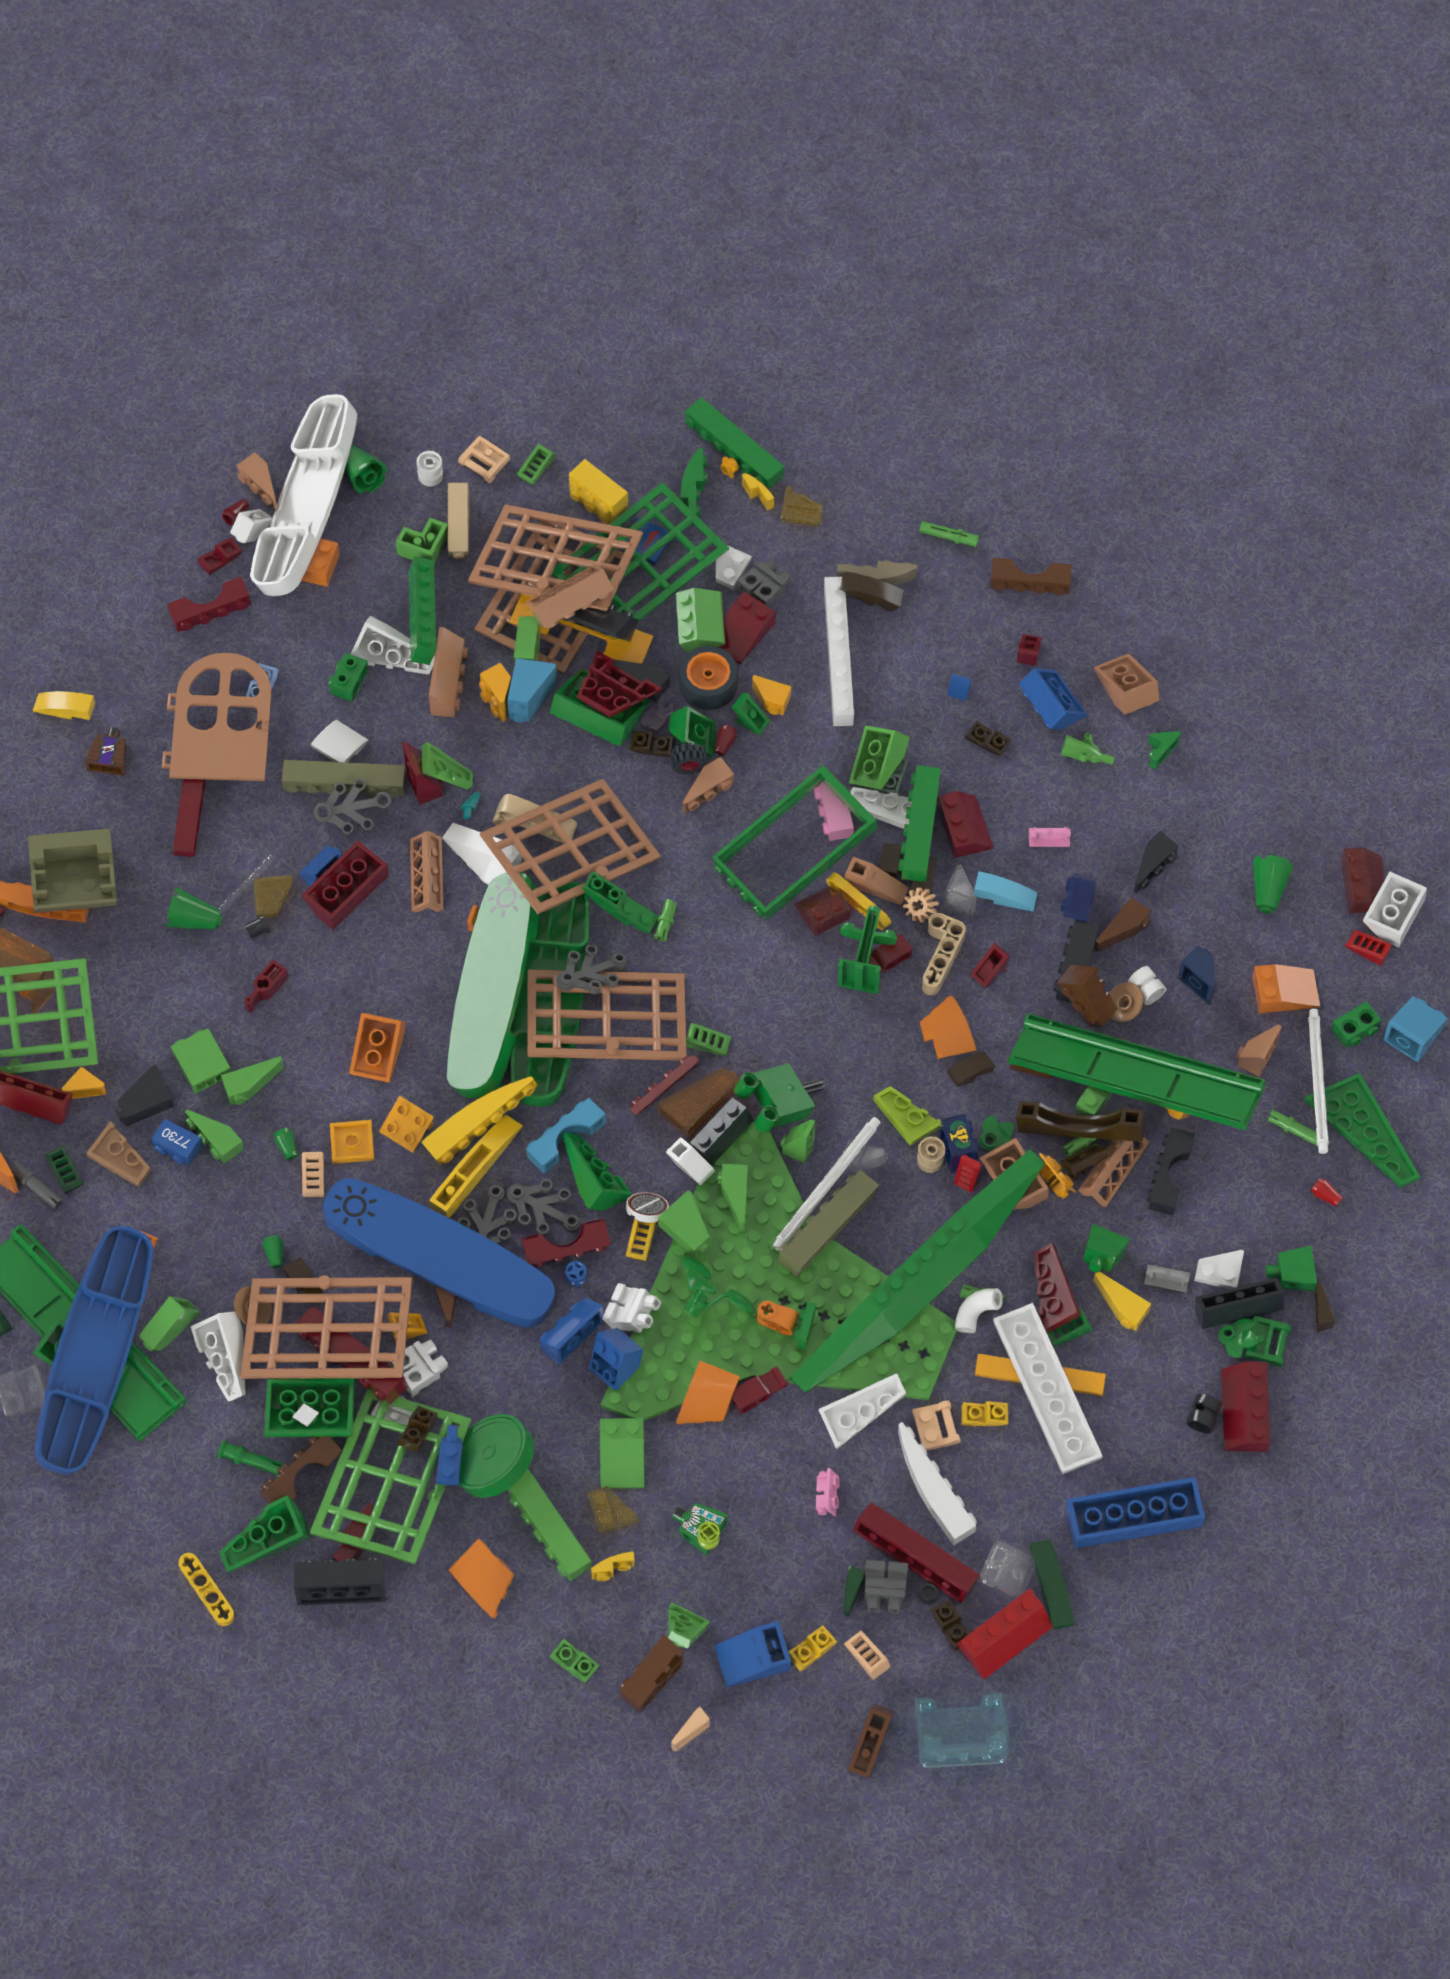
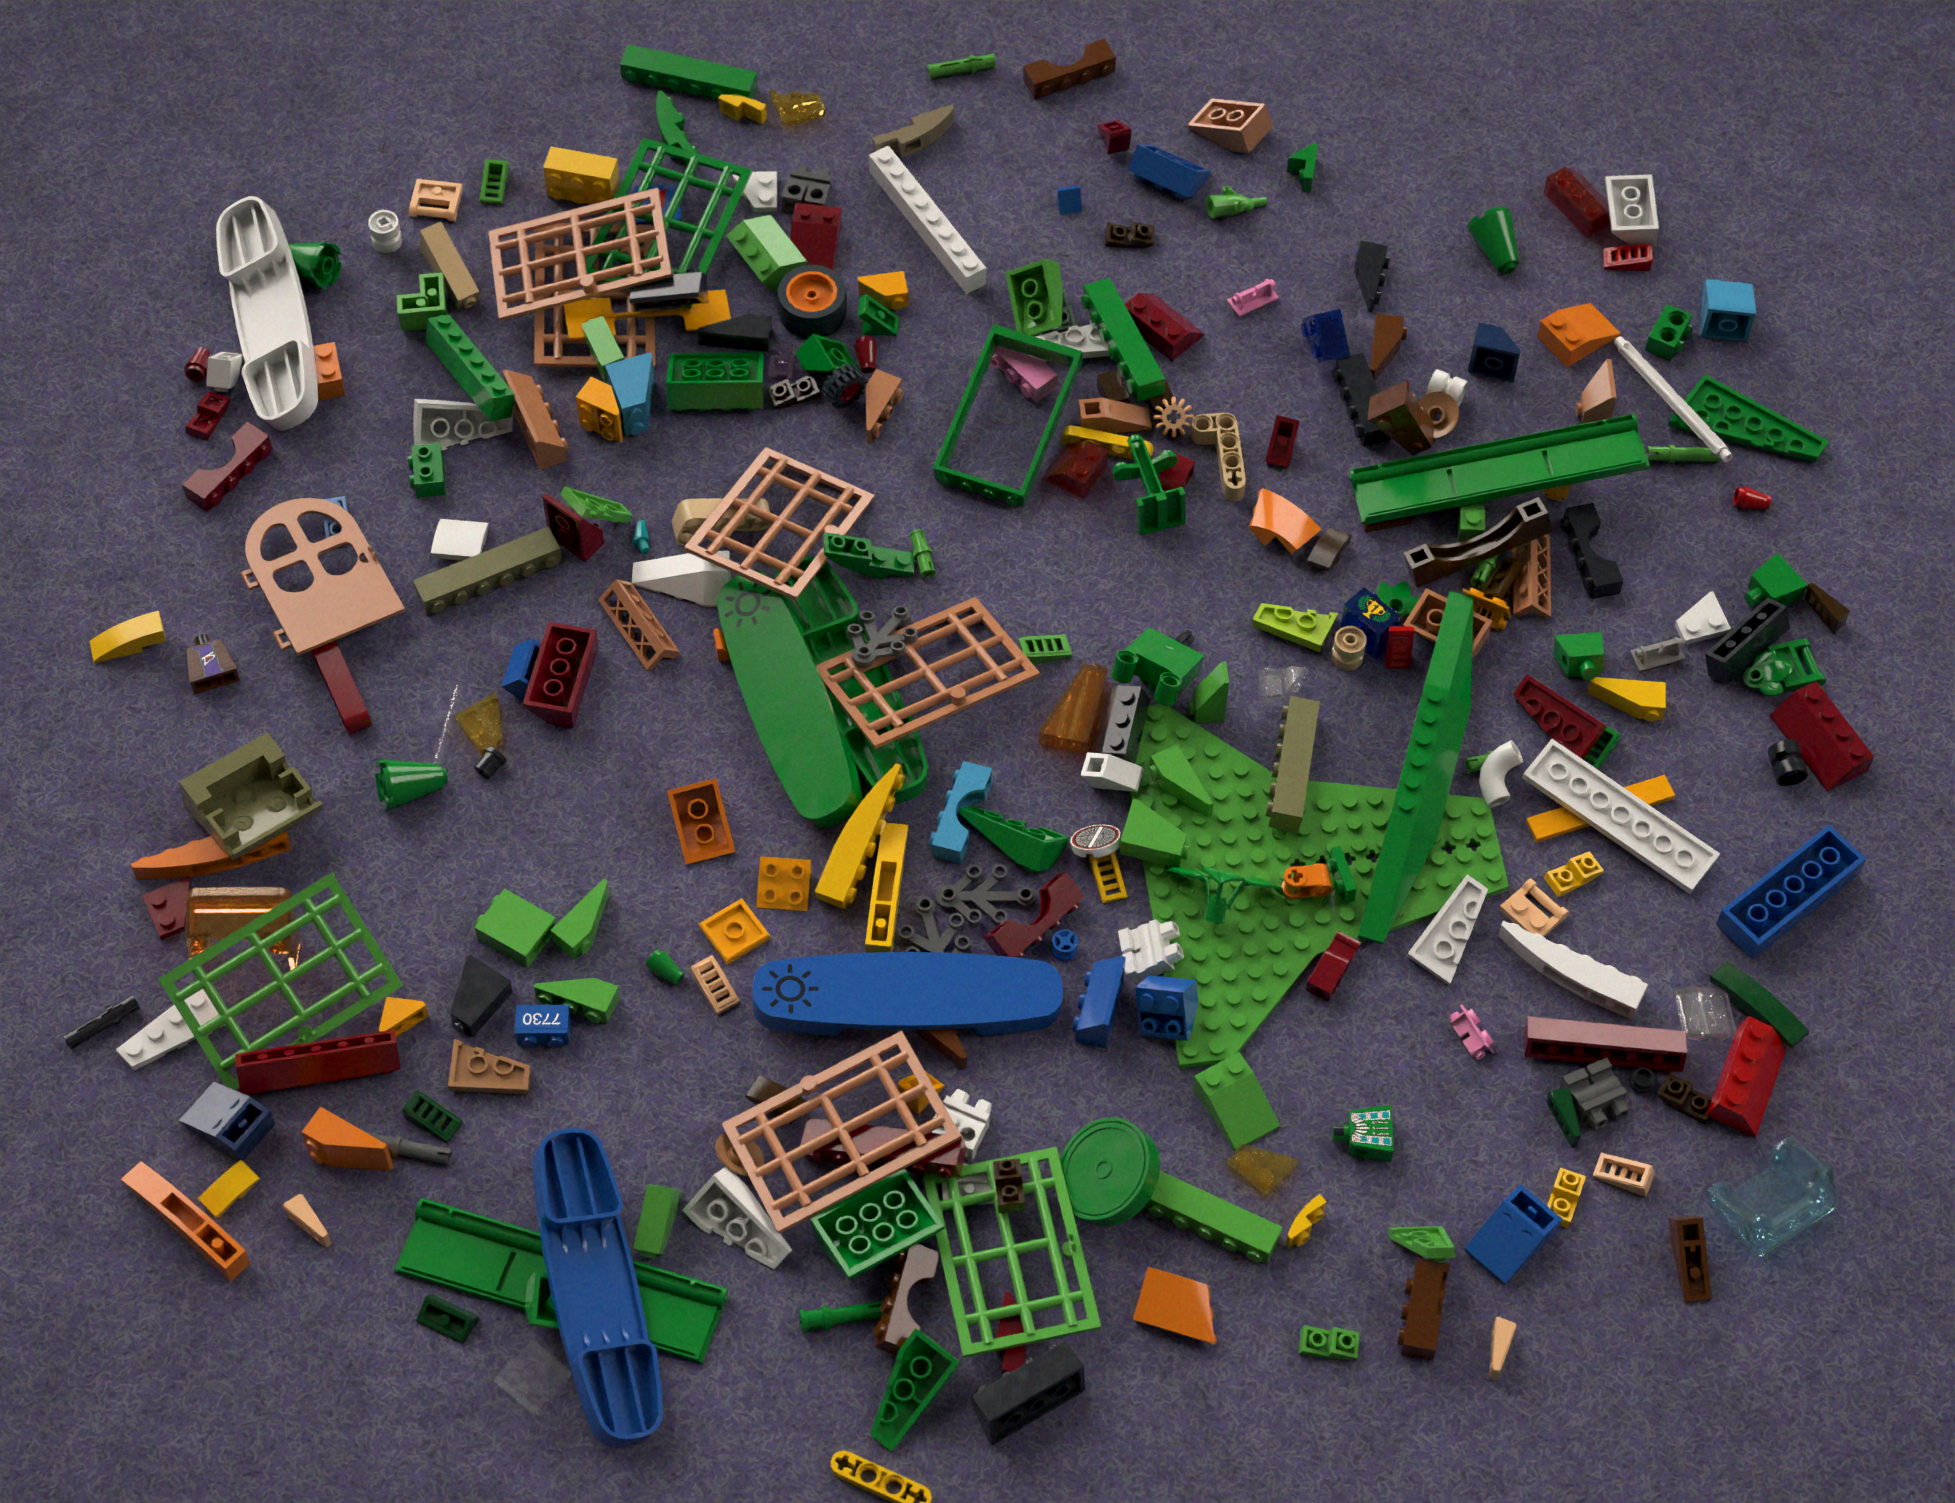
camera: 30 degrees left, 5 degrees down
(256, 474) = (201, 318): nougat slope -> none
(273, 978) = (538, 814): dark red piece -> none
(274, 1250) = (721, 1082): green cone -> none
(305, 1414) = (879, 1232): white sticker -> none
(348, 807) = (514, 596): dark grey plant -> none
(450, 1458) = (1065, 1197): blue hinge -> none
(570, 596) = (627, 277): nougat slope -> none
(611, 688) = (723, 352): dark red wedge -> none
(670, 1077) = (1036, 701): dark red wing -> none
(708, 1395) = (1287, 996): orange slope -> none
(711, 1538) = (1389, 1140): lime wheel -> none
(729, 466) = (697, 98): light orange plate -> none
(828, 1181) = (1266, 728): white piece -> none
(872, 591) = (924, 147): dark brown slope -> none
(959, 894) = (1209, 387): clear slope -> none
(1004, 892) = (1245, 368): medium azure slope -> none

